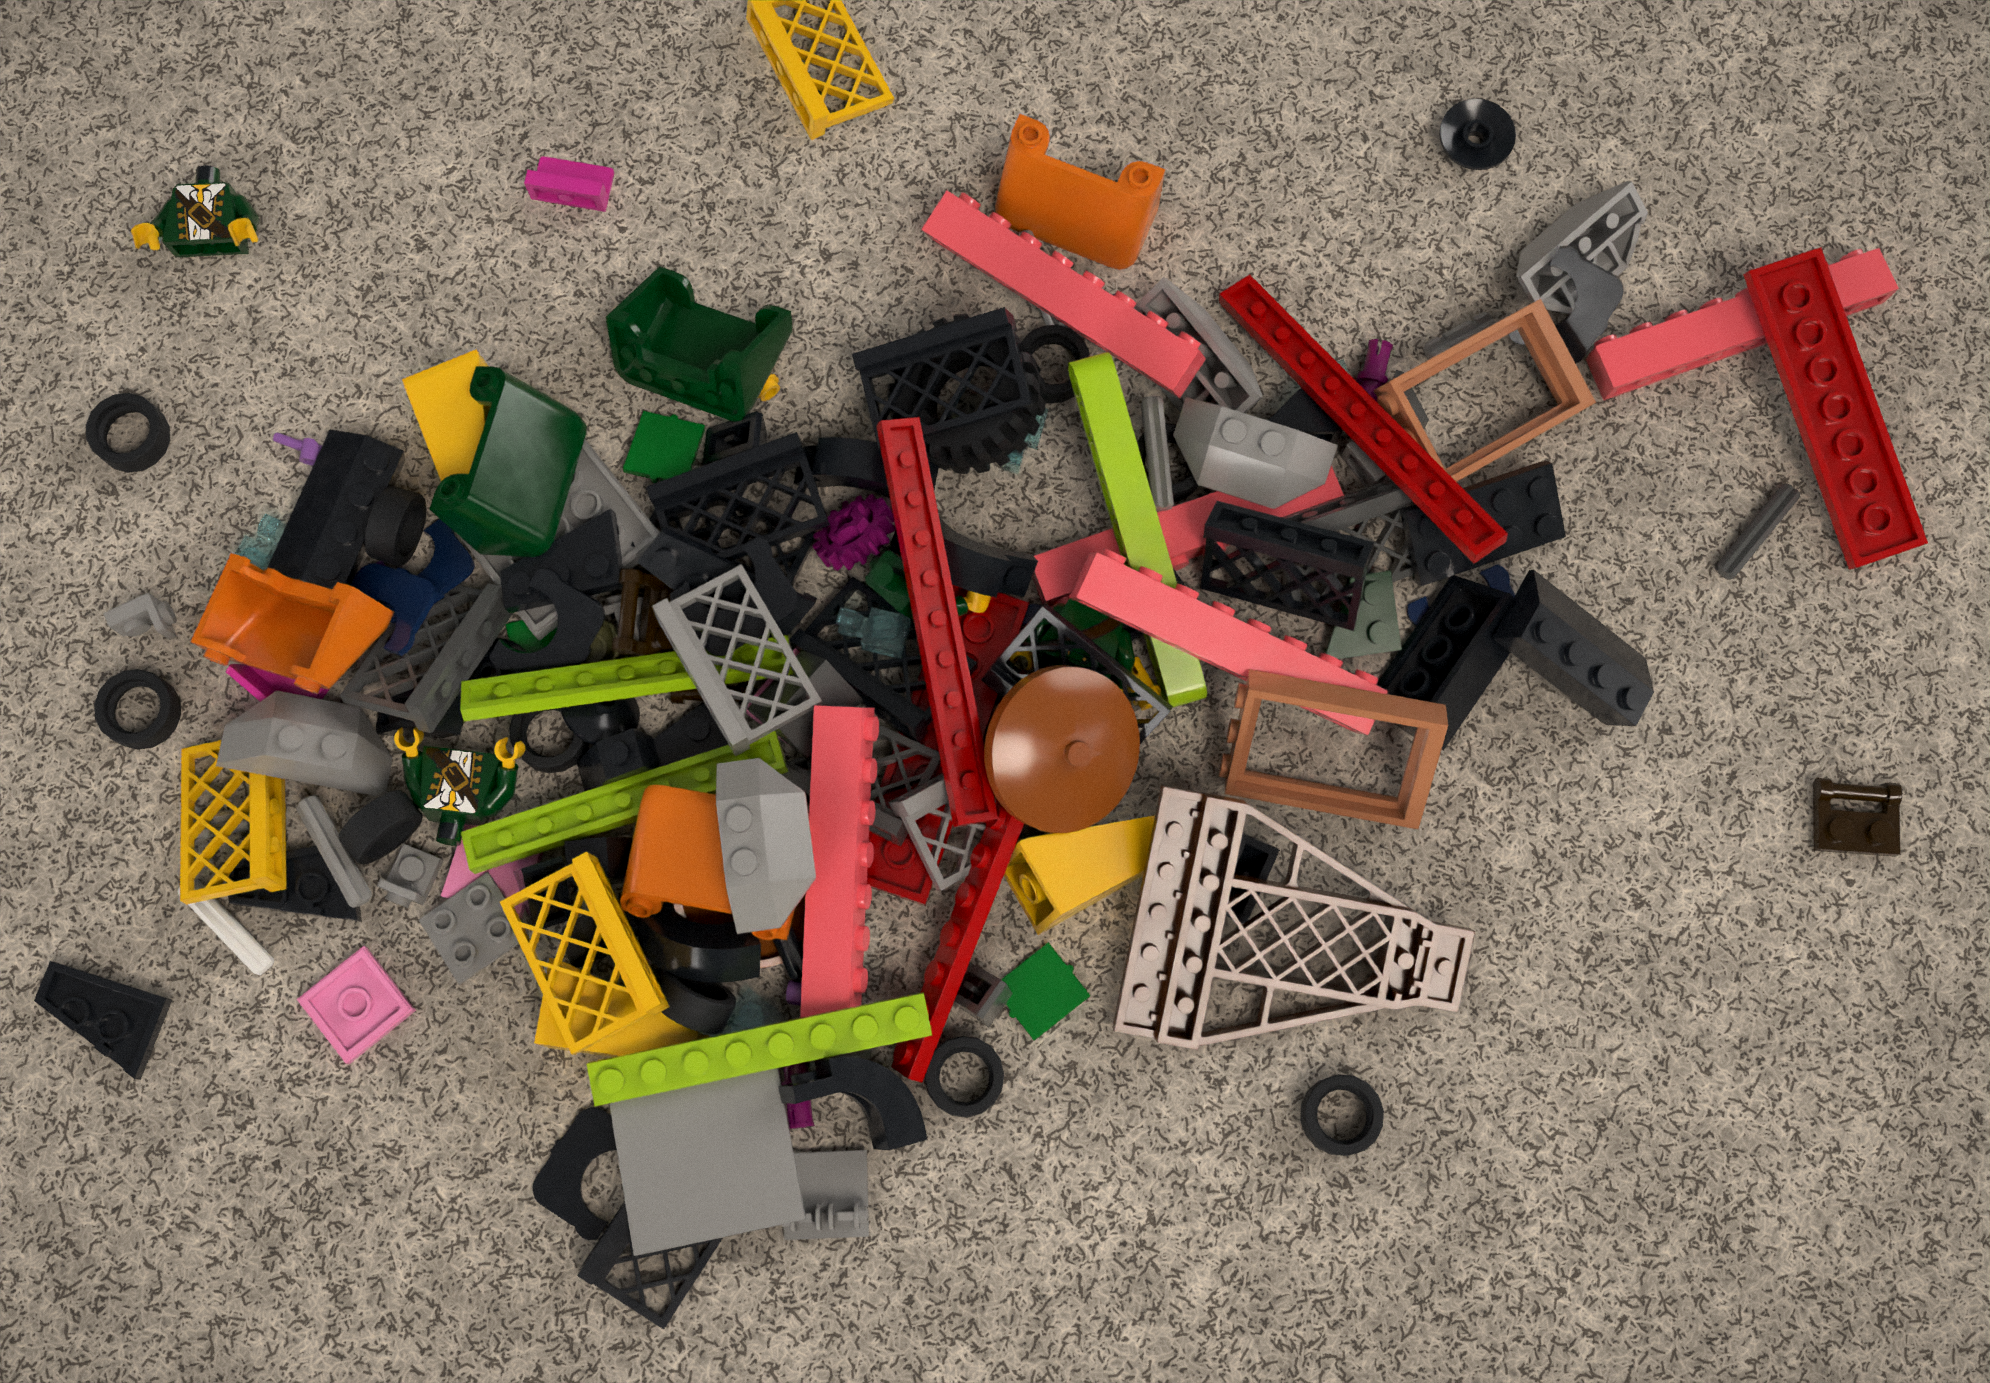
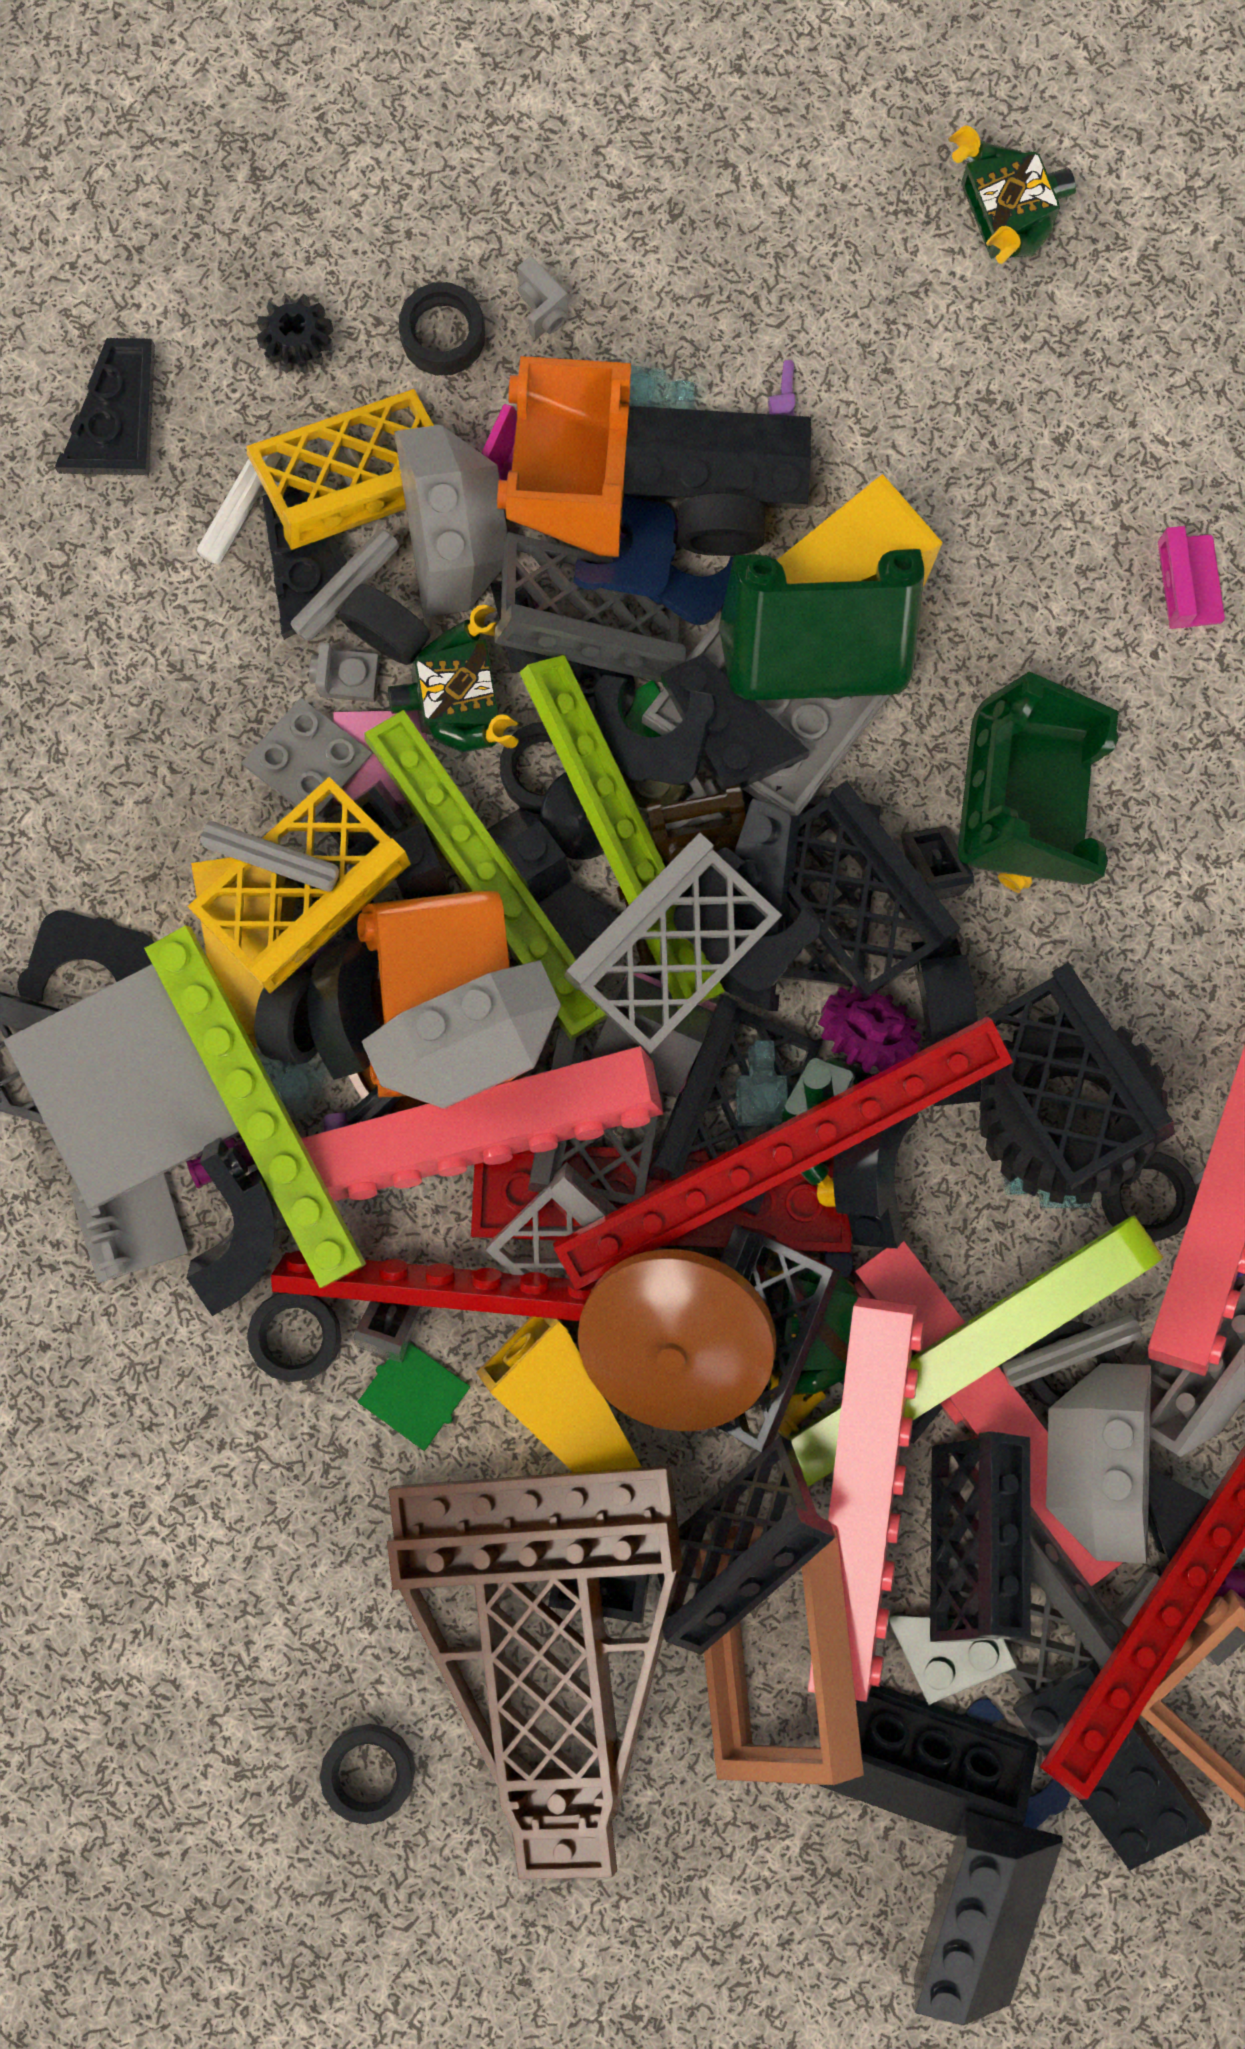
camera: 75 degrees right, 5 degrees up
(105, 841) = (287, 346): none -> black gear
(108, 412) = (742, 174): black tyre -> none
(356, 1005) = (195, 664): bright pink tile -> none
(552, 969) = (269, 856): none -> light grey axle
(663, 447) = (907, 785): green piece -> none
(1266, 744) = (751, 1571): none -> black fence

